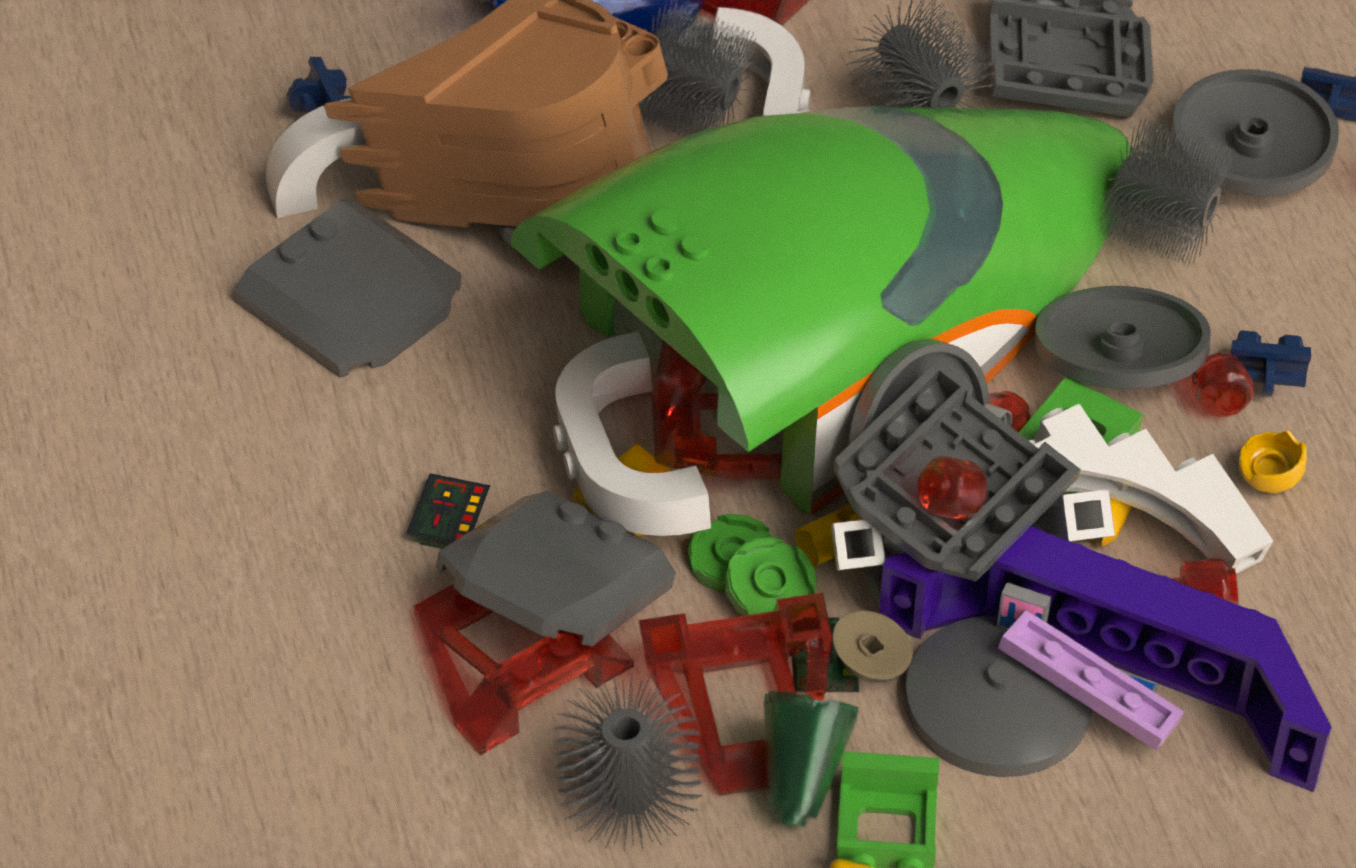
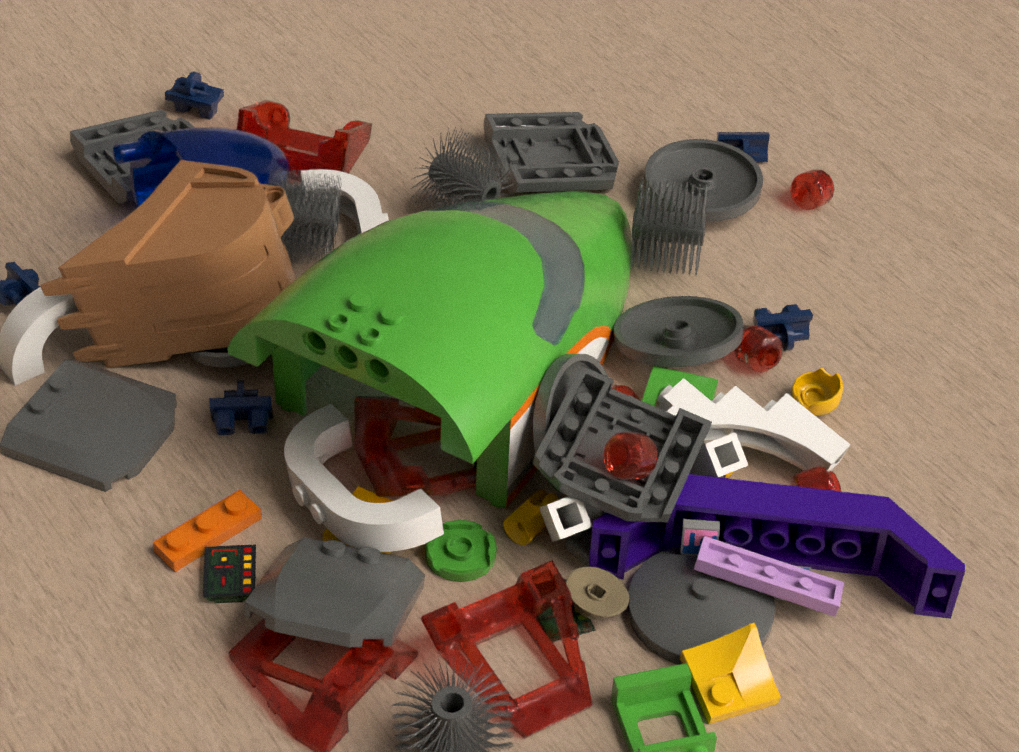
camera: 20 degrees left, 5 degrees down
(441, 453) = (207, 529): none -> orange plate
(533, 307) = (241, 405): none -> dark blue hips
(767, 572) = (497, 560): bright green tile -> none
(803, 751) = (584, 686): clear green cone -> none
(994, 787) = (731, 675): none -> yellow plate

